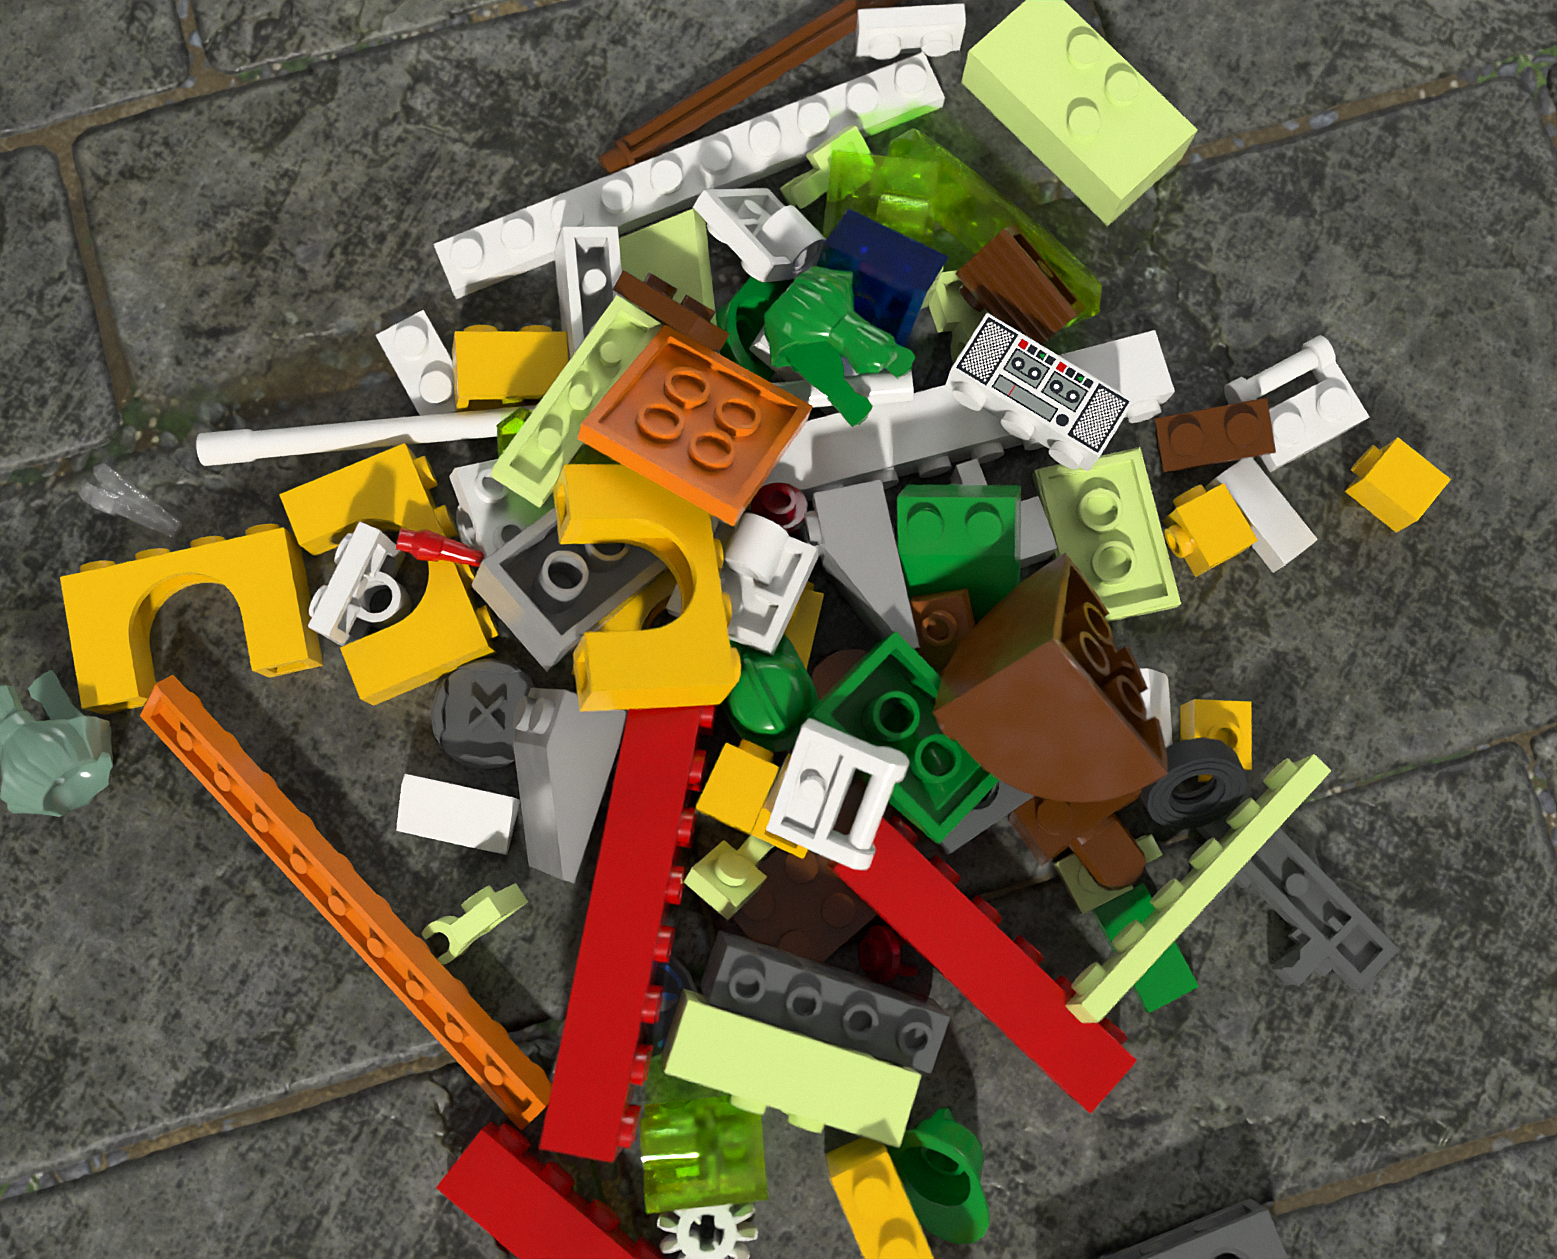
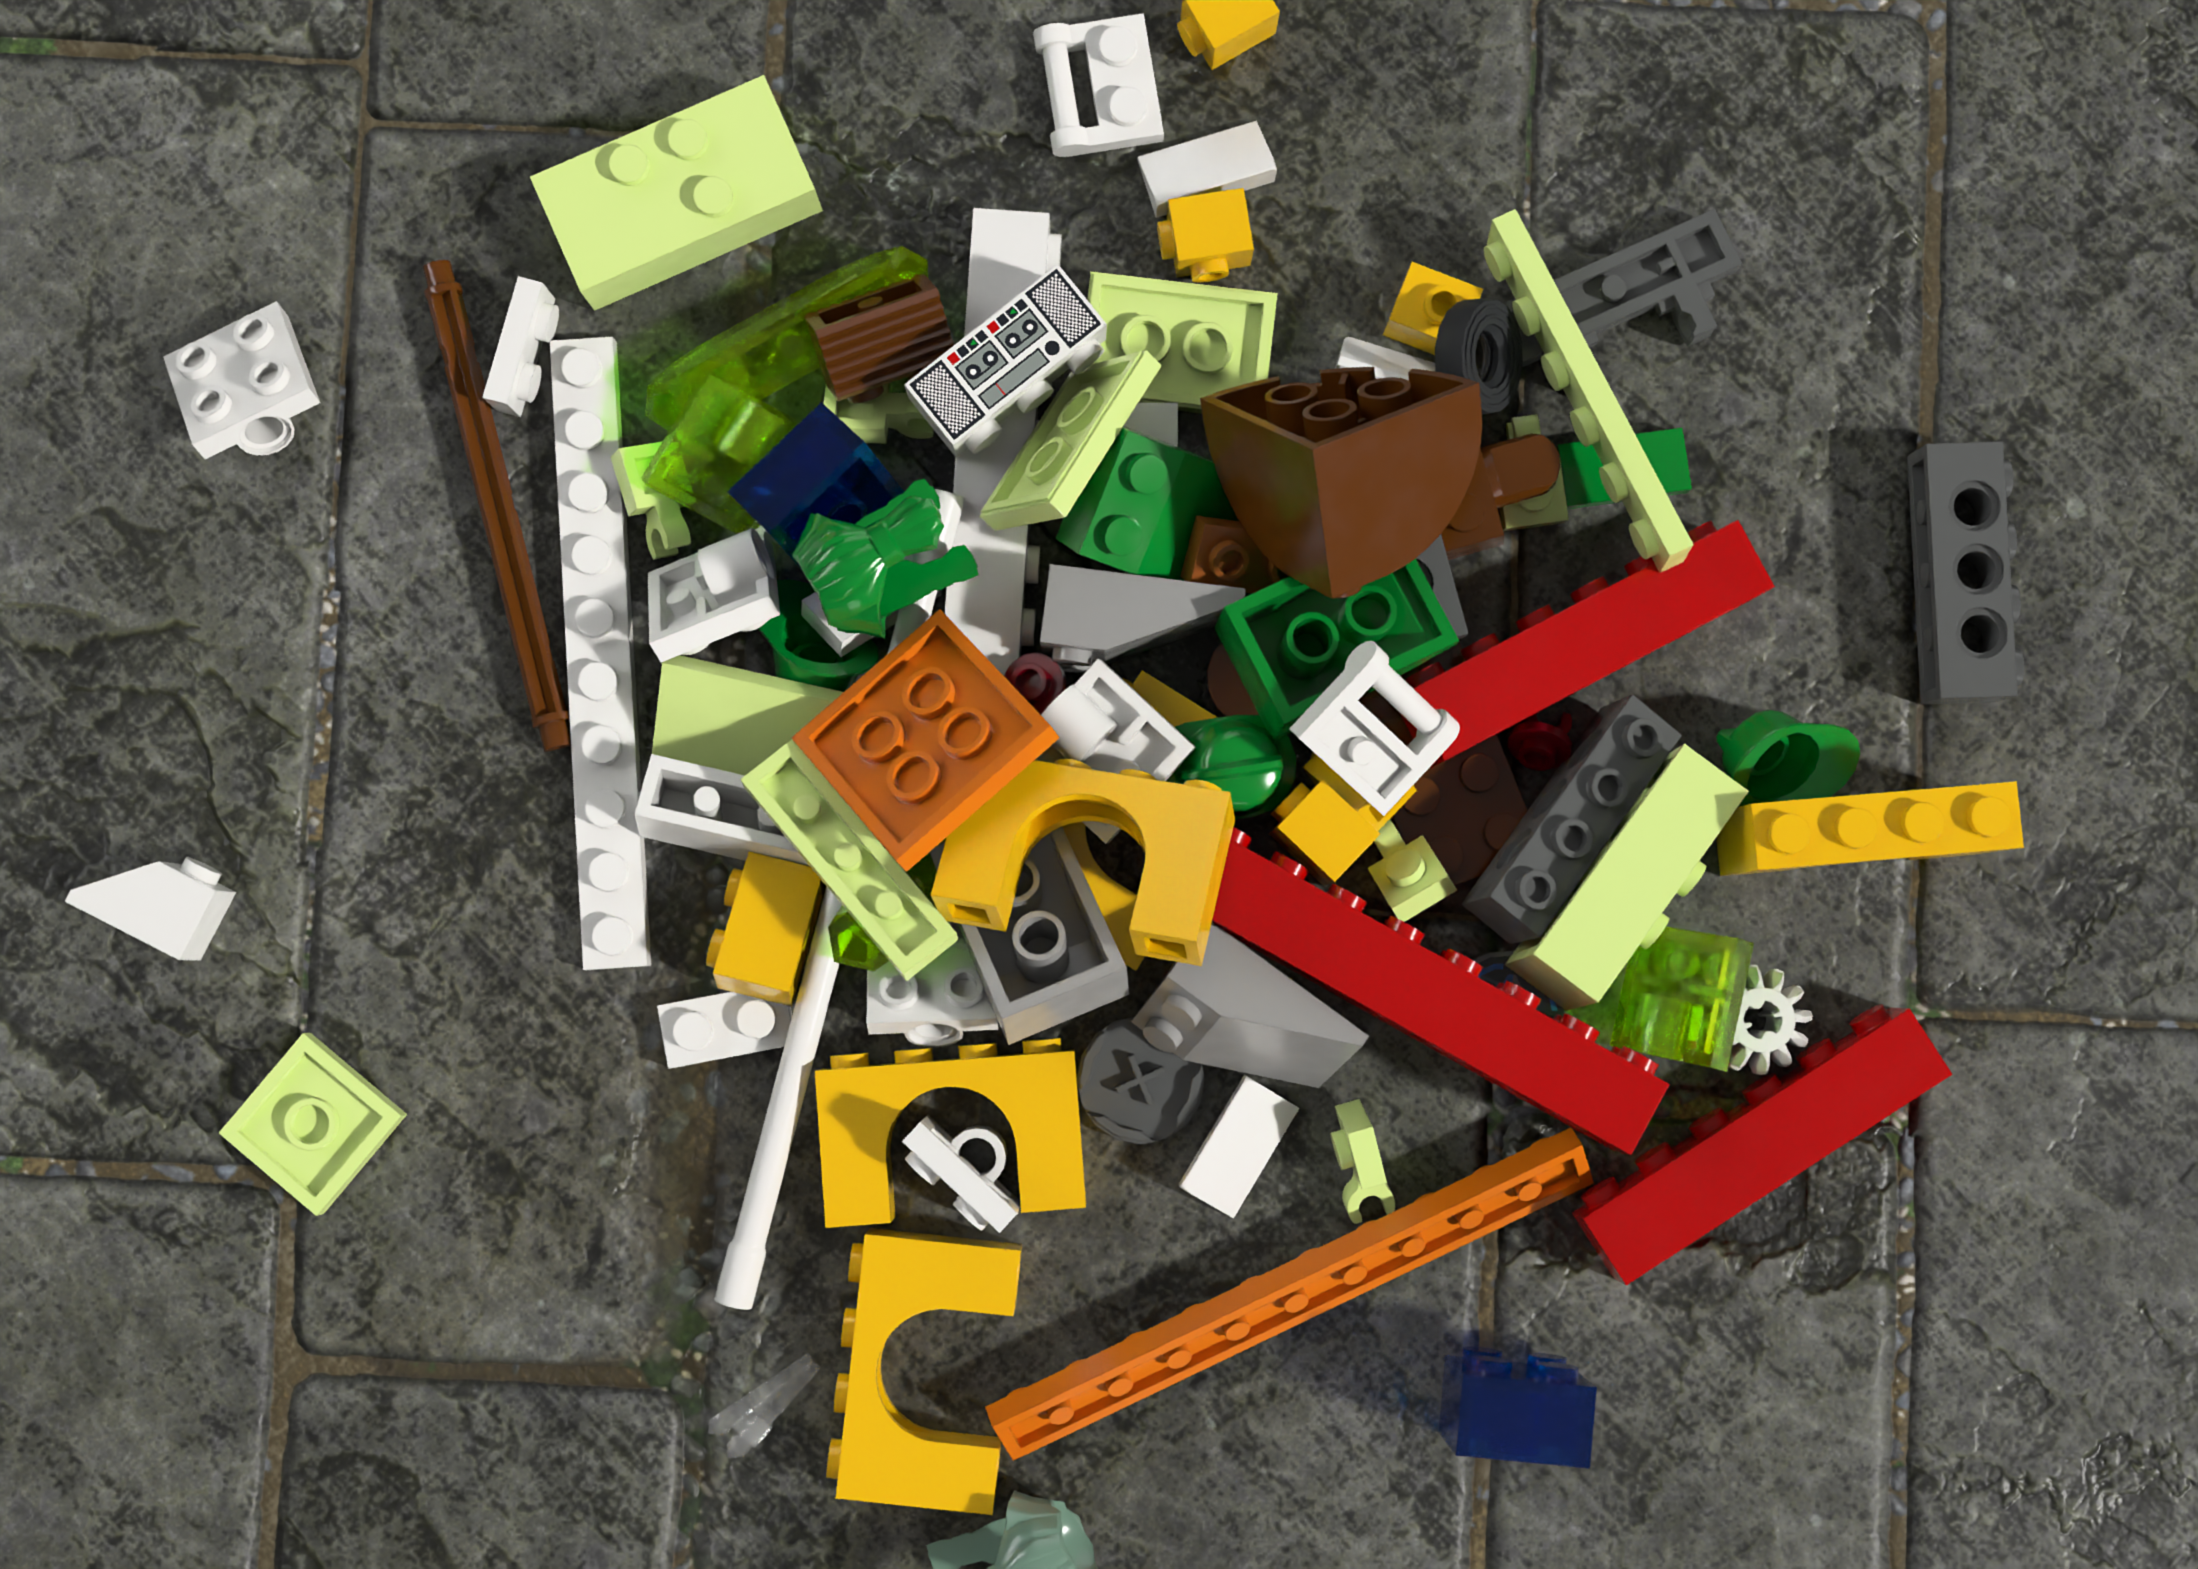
camera: 70 degrees left, 5 degrees up
(247, 85) = (312, 1123): none -> yellowish green plate
(297, 1127) = (1517, 1408): none -> clear blue brick
(435, 547) = (948, 1072): red piece -> none
(688, 317) = (793, 712): reddish brown plate -> none
(990, 462) = (1069, 442): none -> yellowish green tile
(1215, 435) = (1108, 187): reddish brown plate -> none

